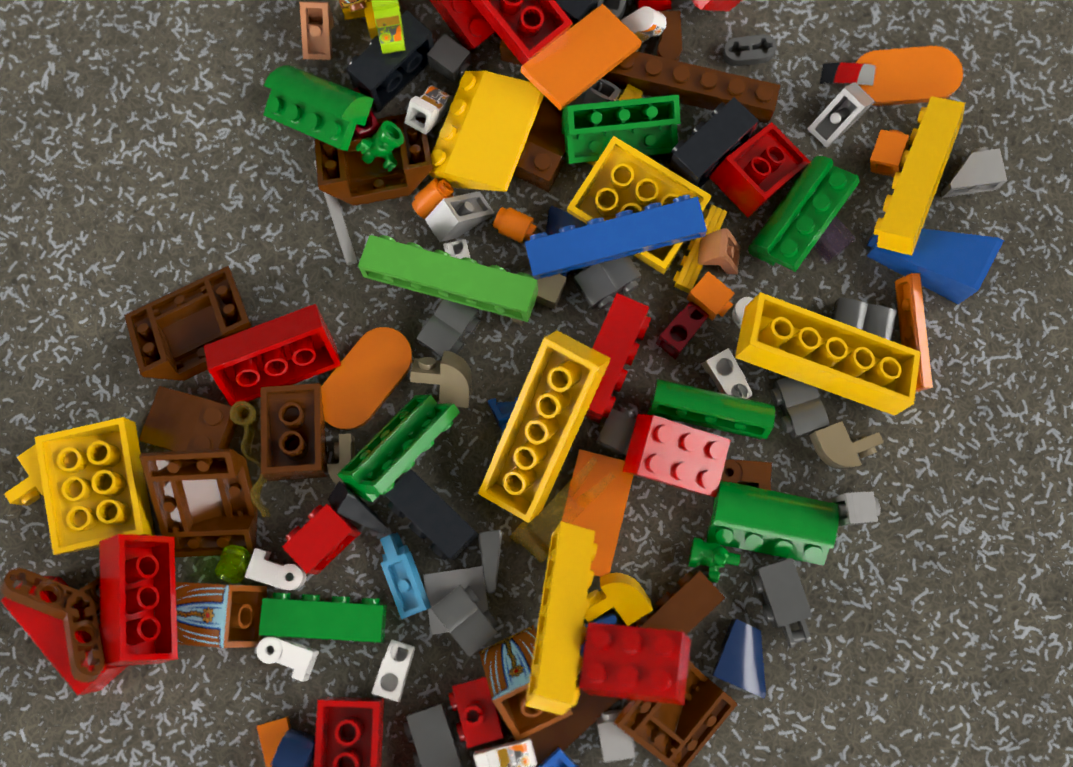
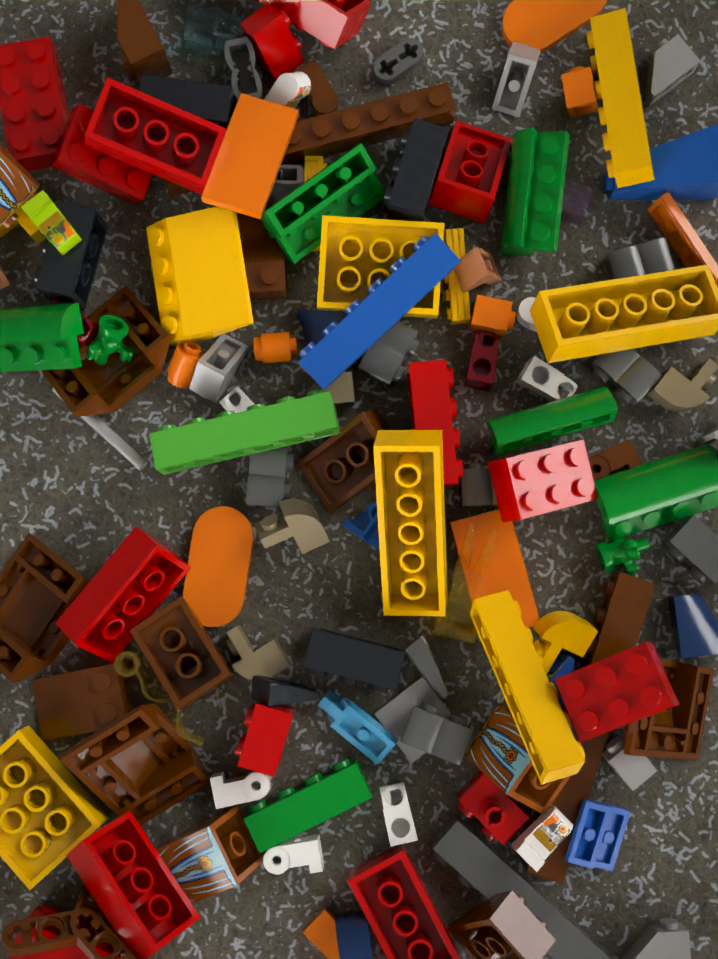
camera: 30 degrees left, 5 degrees up
(233, 564) = (197, 803): clear neon green wheel -> none
(397, 446) = (288, 614): green brick -> none
(431, 106) = (132, 278): white leg -> none
(449, 58) = (124, 222): dark grey brick -> none
(512, 348) = (345, 461): none -> reddish brown slope
(848, 73) = (500, 35): sticker -> none

